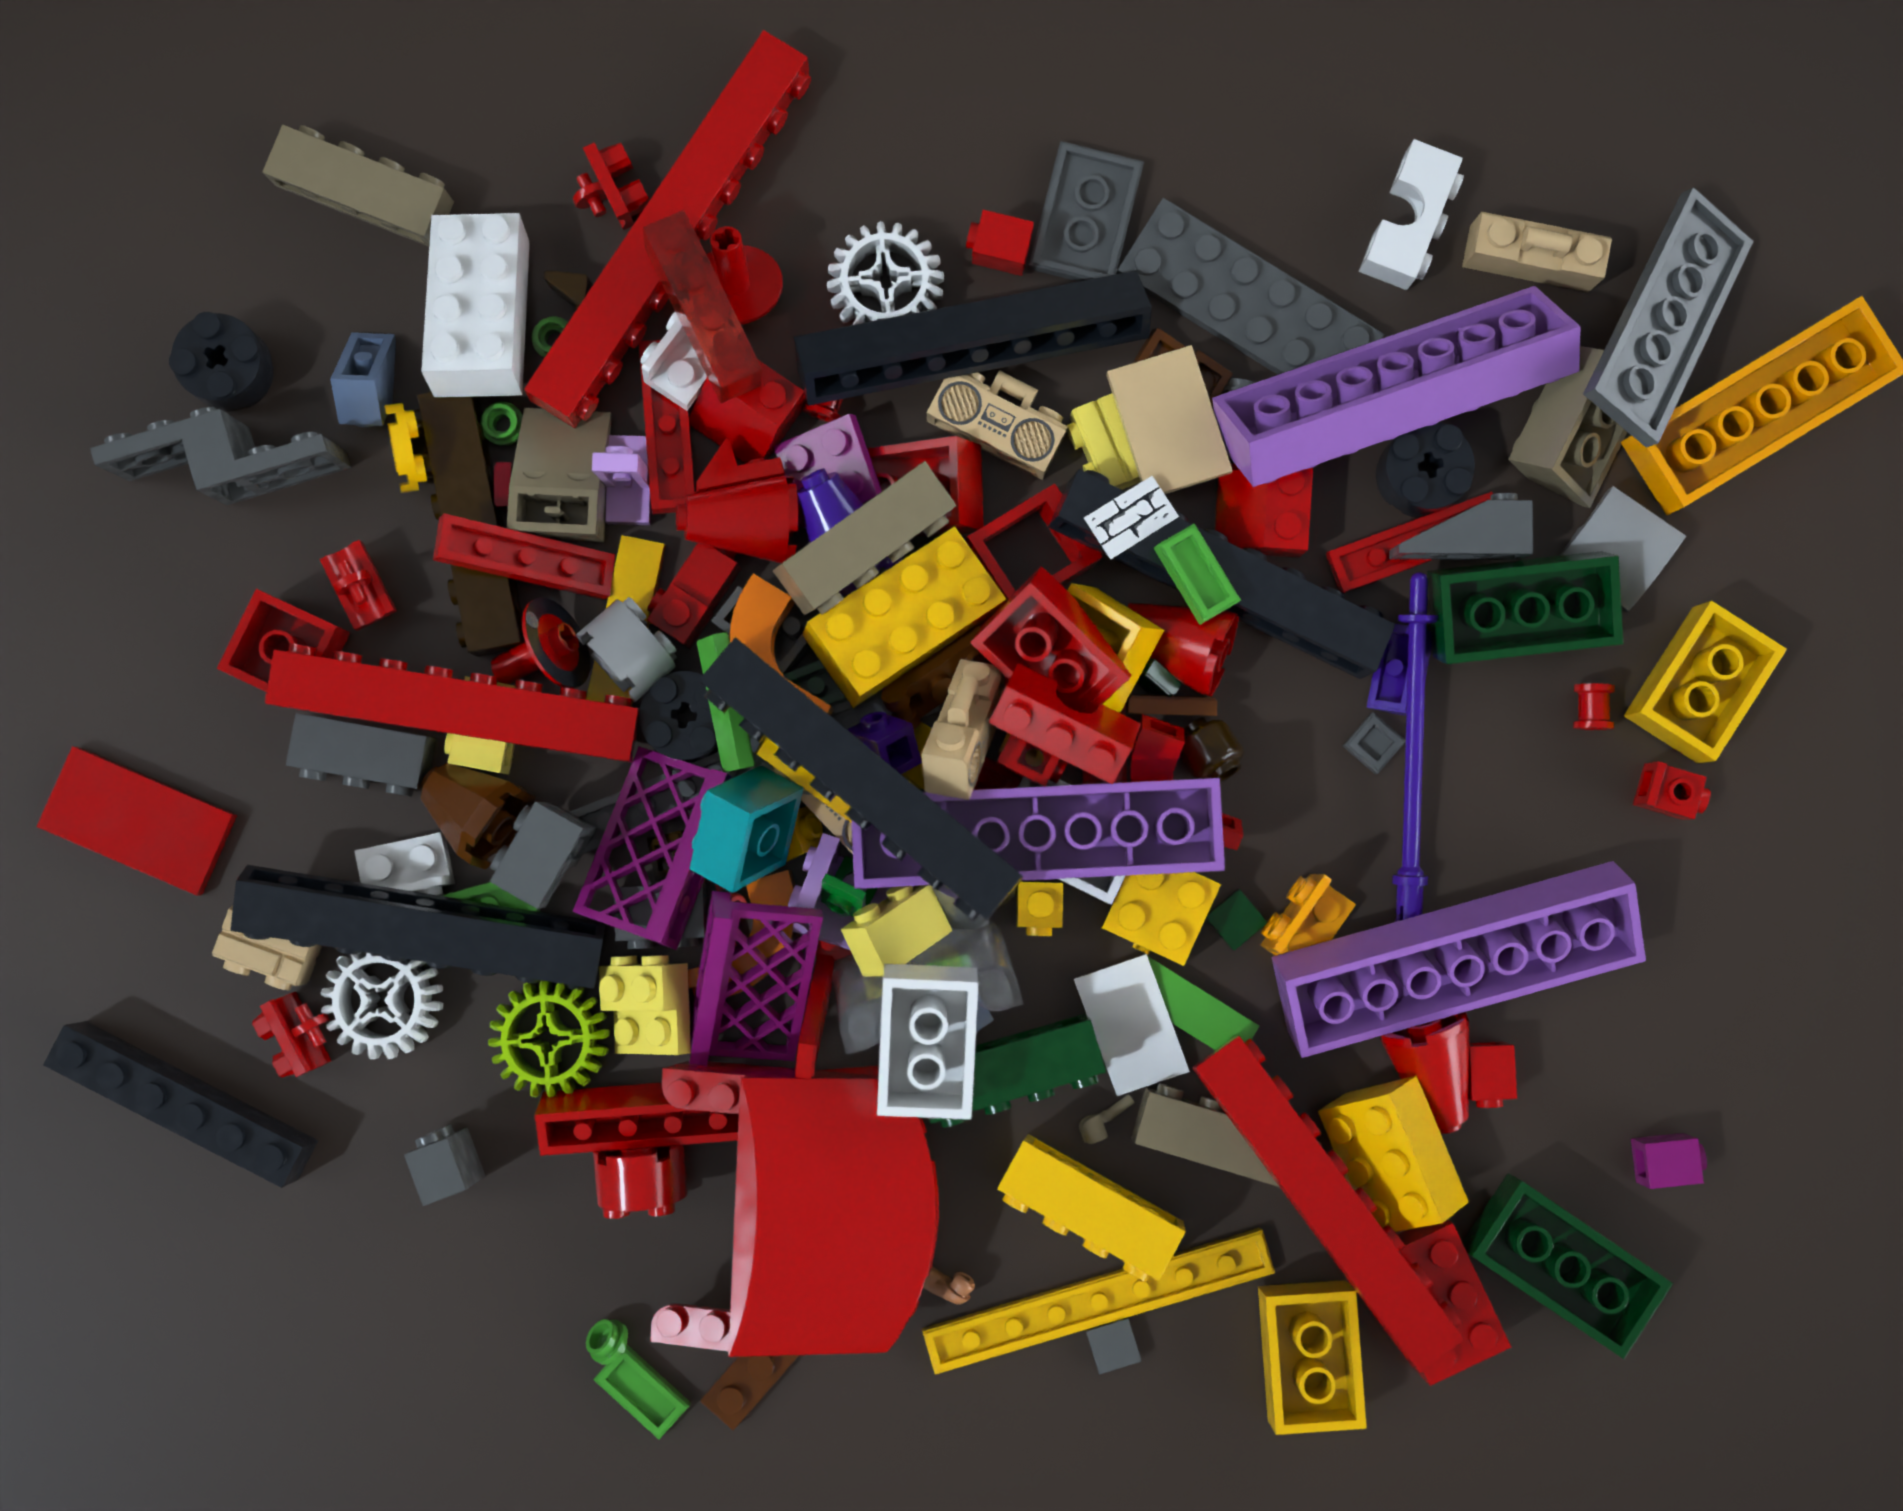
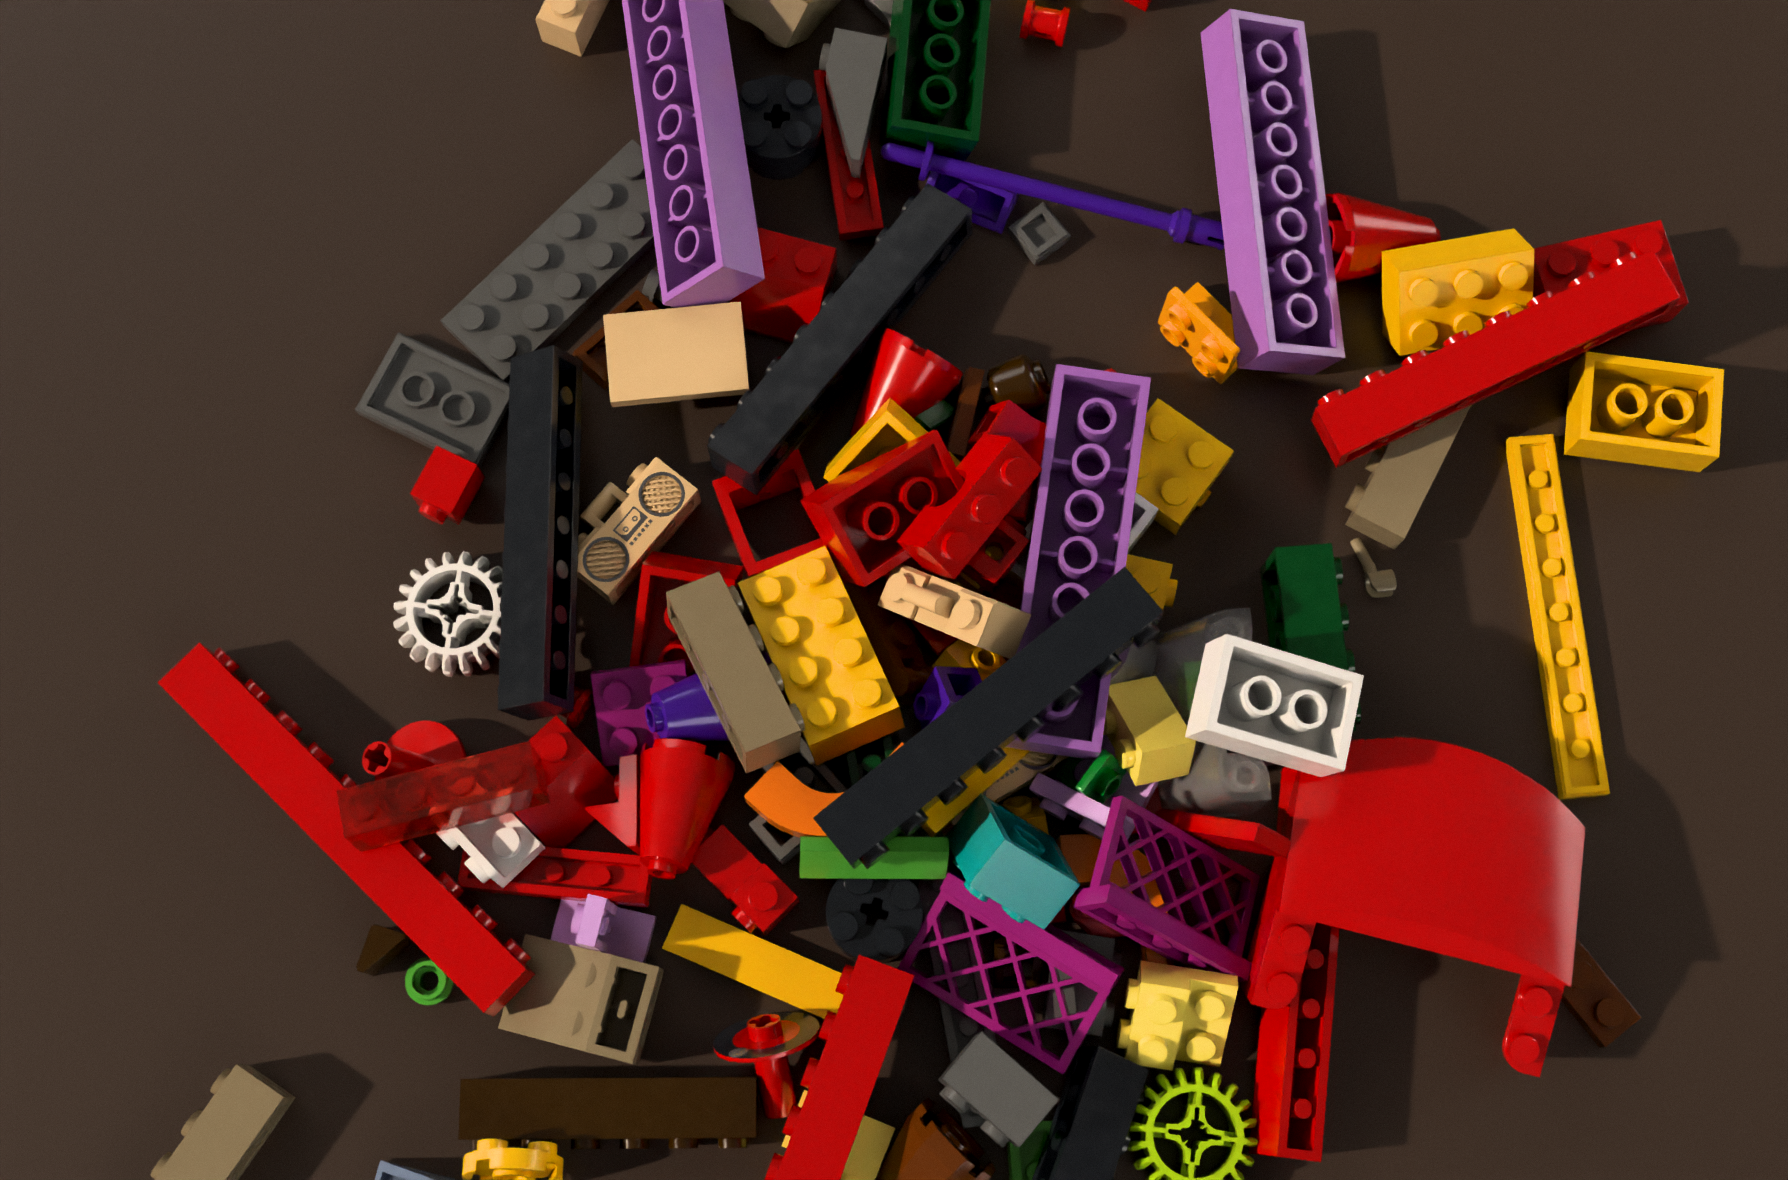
camera: 80 degrees left, 10 degrees down
(476, 305) = (376, 1052): white brick -> none
(493, 414) = (494, 1053): bright green plate -> none
(502, 478) = (582, 1063): dark red tile -> none
(523, 556) = (664, 1053): red plate -> none
(607, 165) = (257, 885): red hips -> none
(607, 1341) = (1528, 1134): bright green plate -> none
(628, 648) = (790, 955): light grey brick -> none
(640, 1180) = (1365, 1060): red brick -> none
(642, 1392) = (1585, 1110): bright green tile -> none
(952, 1290) = (1525, 752): nougat arm -> none
(1093, 1208) = (1462, 592): yellow brick -> none
(1102, 437) = (677, 427): light yellow brick -> none
(1113, 1345) = (1604, 607): dark grey tile -> none
(1131, 517) = (768, 405): white sticker -> none
(1131, 1025) = (1278, 515): white sticker -> none
(1197, 574) = (840, 352): bright green tile -> none
(1198, 1011) = (1270, 465): bright green tile -> none
(1236, 919) = (1192, 397): dark green tile -> none
(1426, 181) = (491, 65): white arch -> none
(1492, 1073) = (1389, 184): red brick -> none
(1566, 1265) = (1586, 156): dark green brick -> none
(1668, 1160) = (1497, 47): magenta brick -> none

